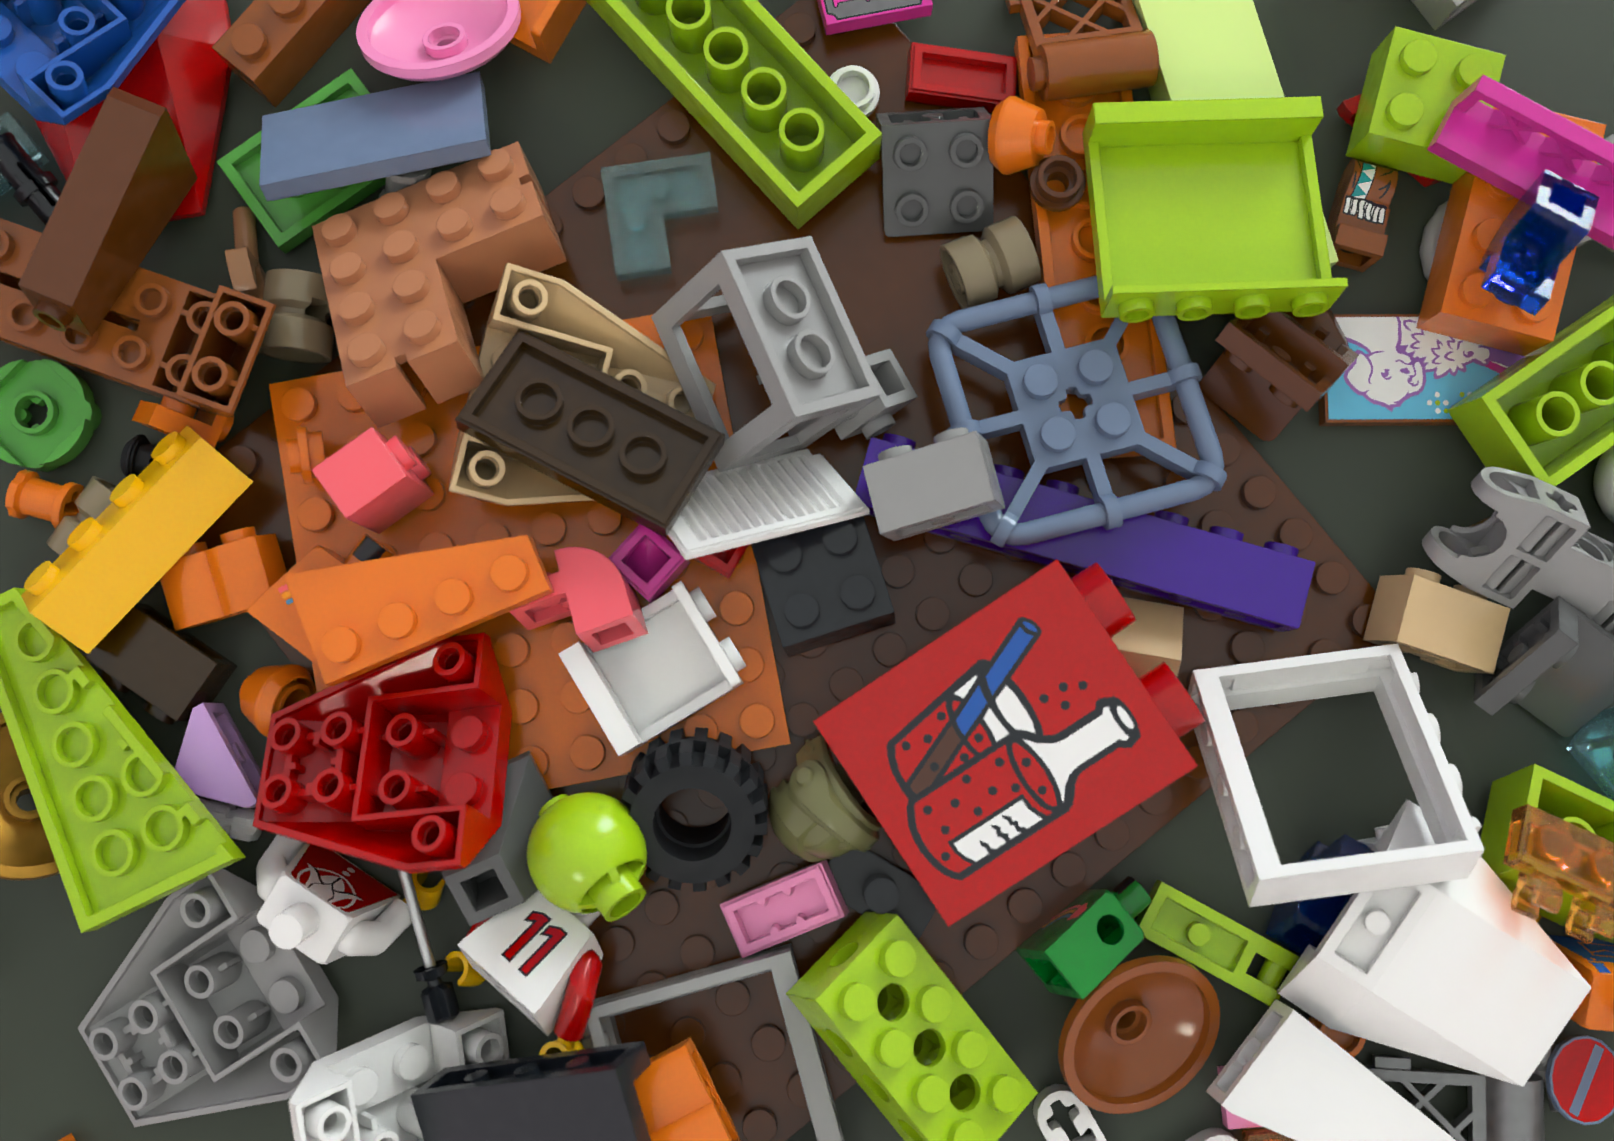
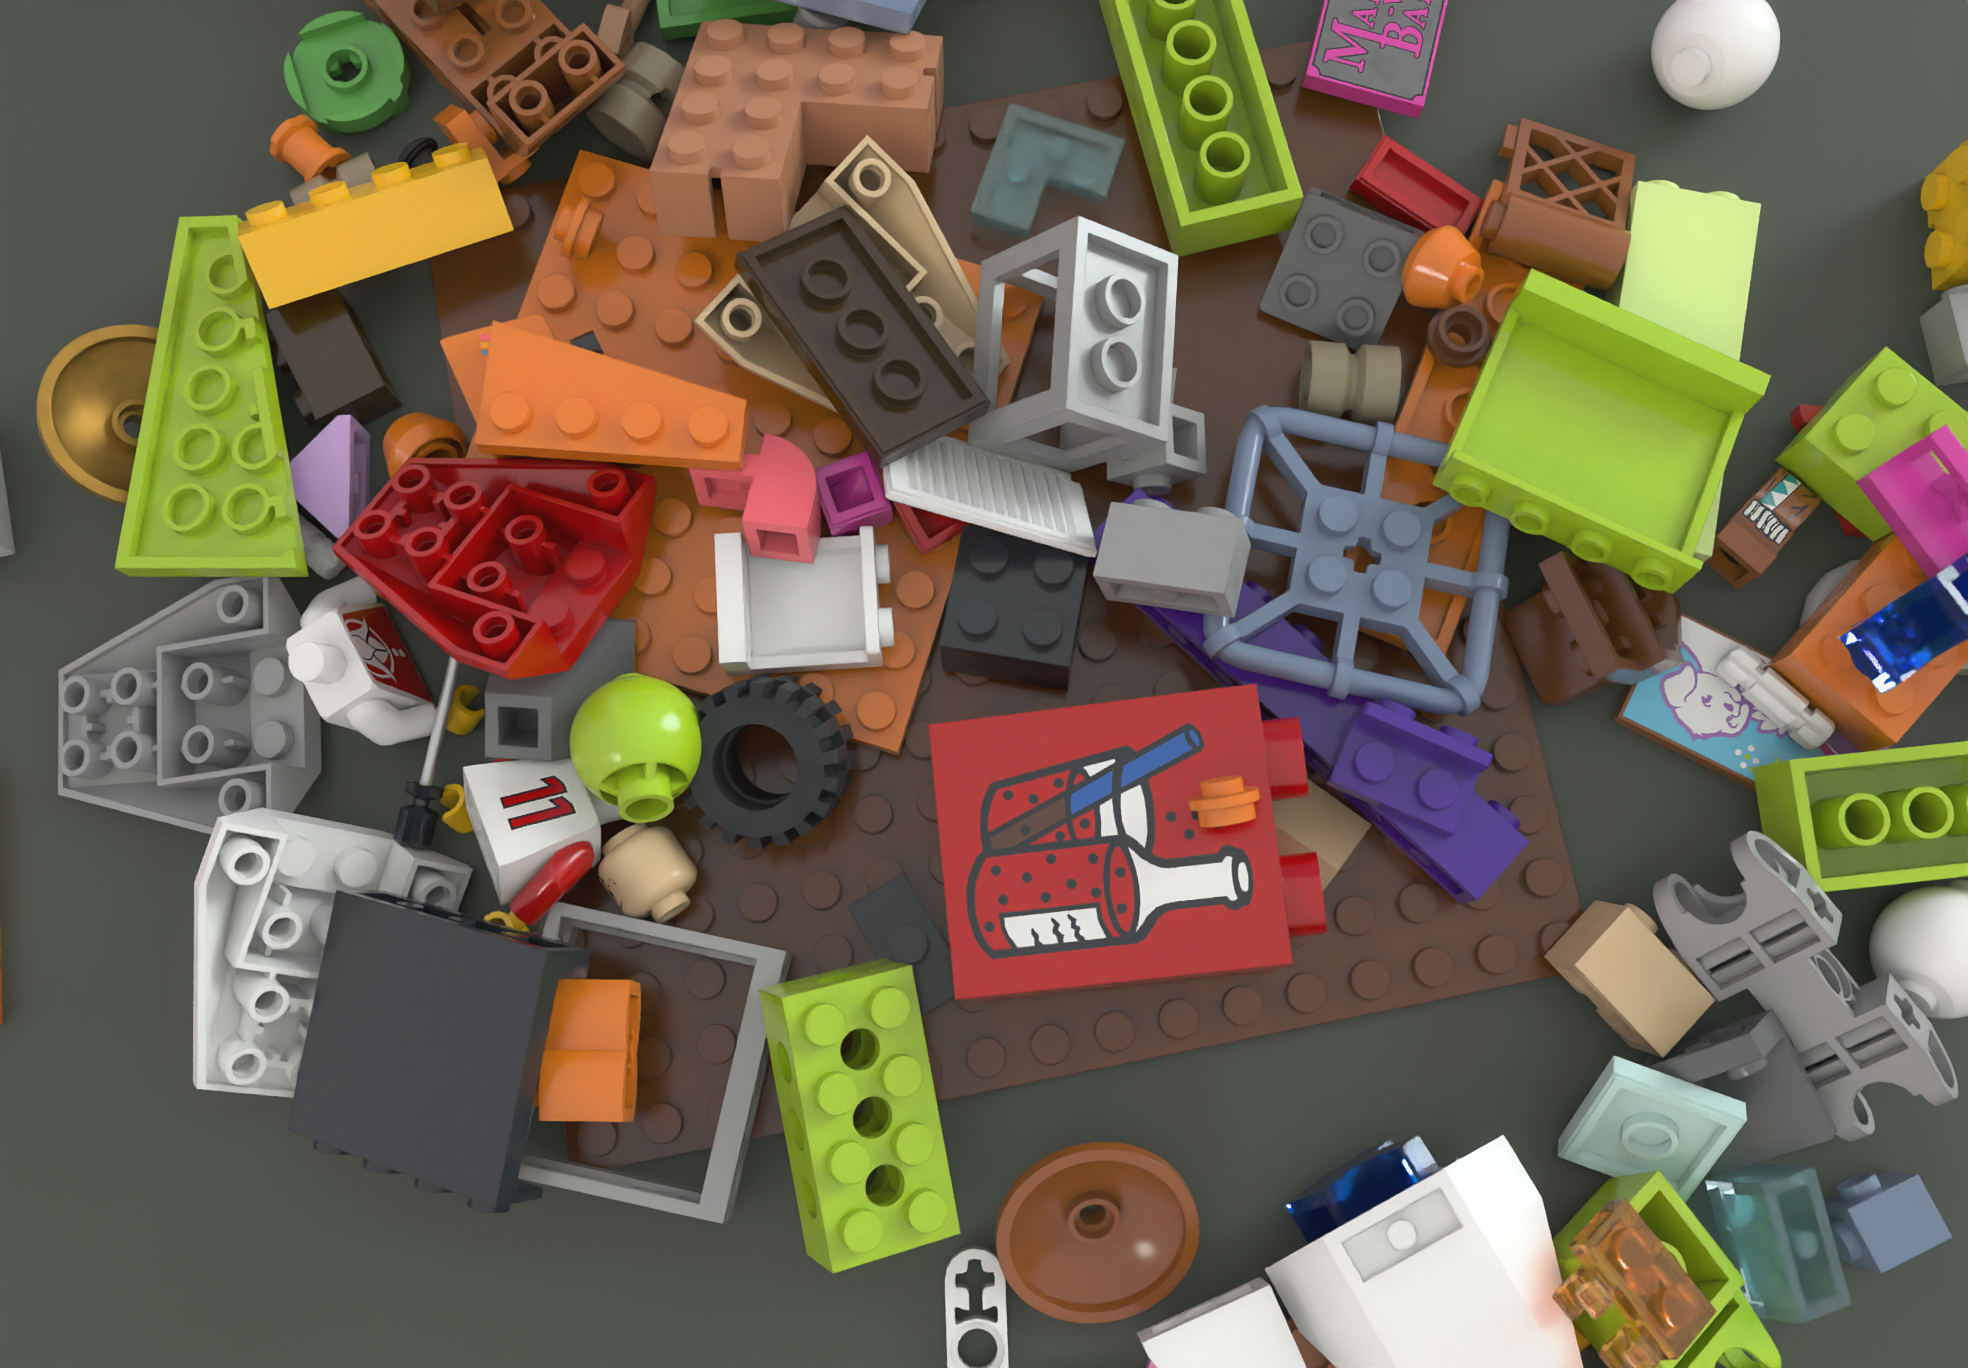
camera: 30 degrees right, 5 degrees down
(222, 580) = (421, 306): orange brick -> none
(375, 480) = (630, 279): coral brick -> none
(647, 946) = (647, 872): none -> tan head
(784, 908) = (804, 911): bright pink plate -> none
(820, 808) = (890, 828): olive helmet -> none
(859, 86) = (1307, 150): white plate -> none
(1083, 669) = (1224, 801): none -> orange plate
(1087, 939) = (1073, 1110): green torso -> none
(1196, 554) = (1408, 766): none -> dark purple bracket
(1214, 942) = (1225, 1184): lime plate -> none
(1417, 742) = (1469, 964): white window -> none
(1438, 346) = (1775, 697): none -> white axle
(1512, 729) = (1651, 1122): none -> light aqua tile

